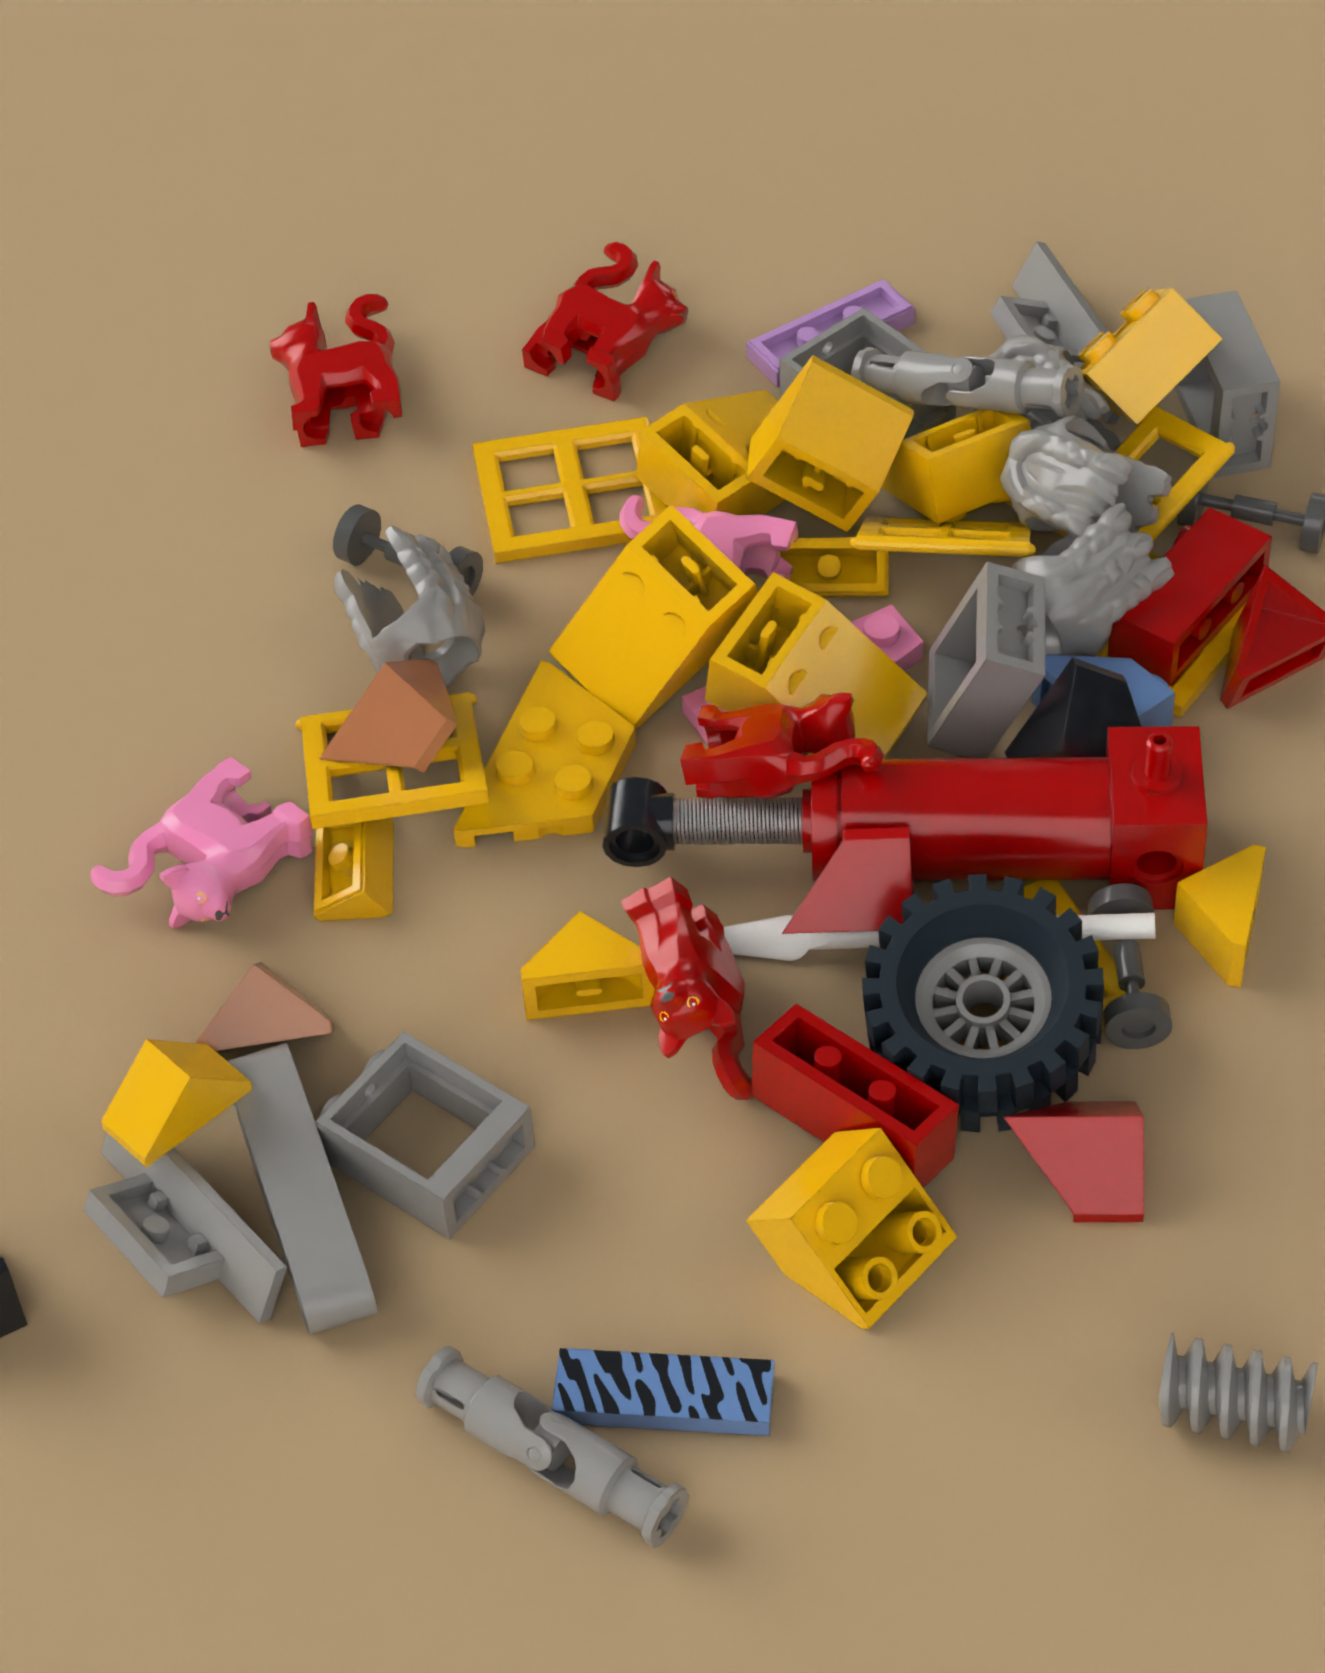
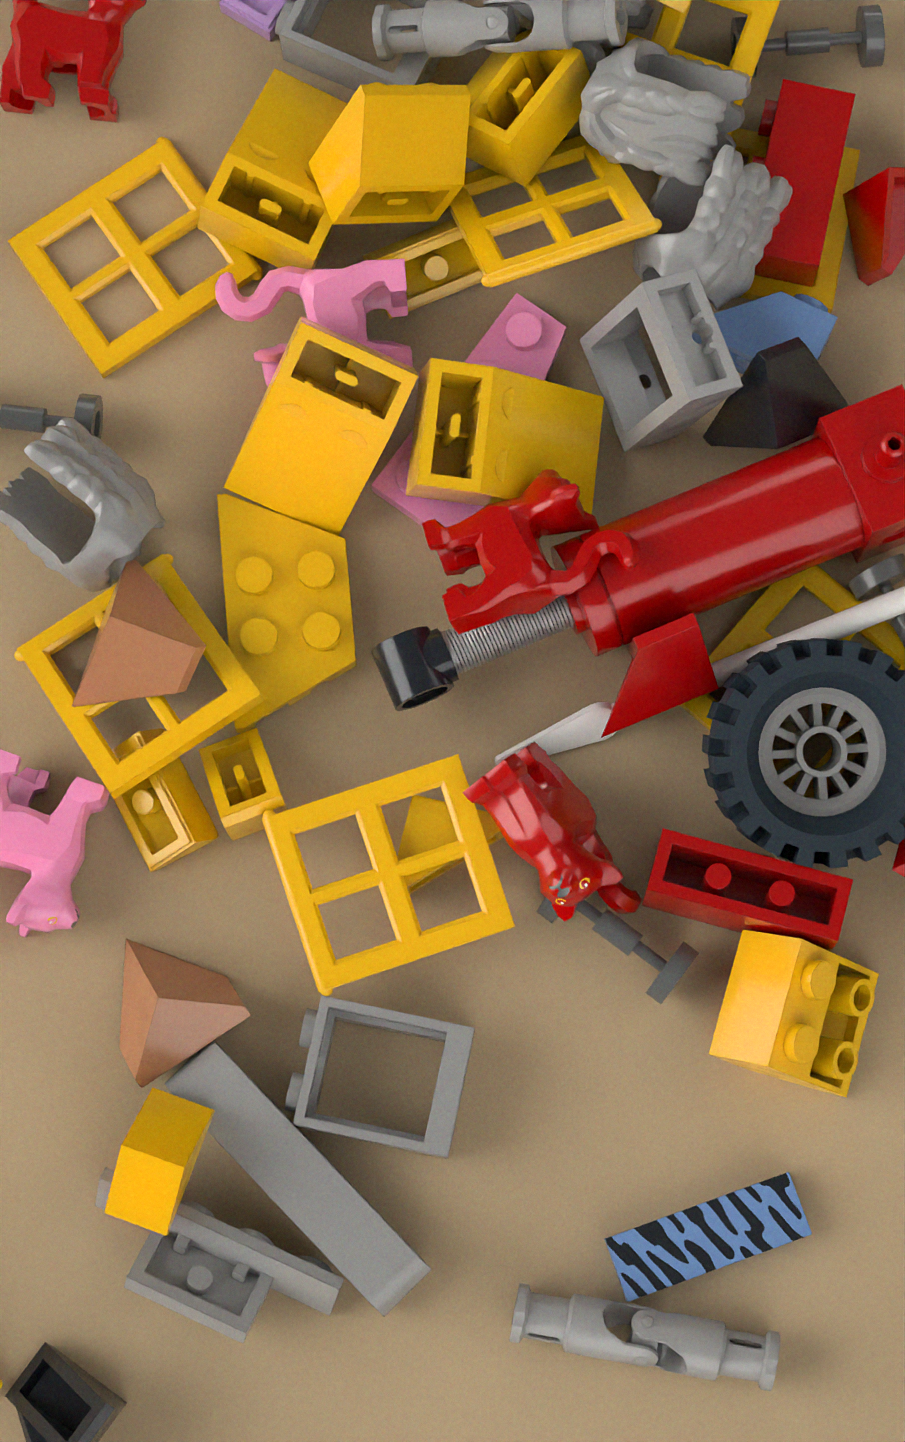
camera: 25 degrees left, 30 degrees up
(433, 881) = (242, 782): none -> yellow slope
(519, 956) = (387, 873): none -> yellow window
(747, 1146) = (628, 940): none -> dark grey wheel

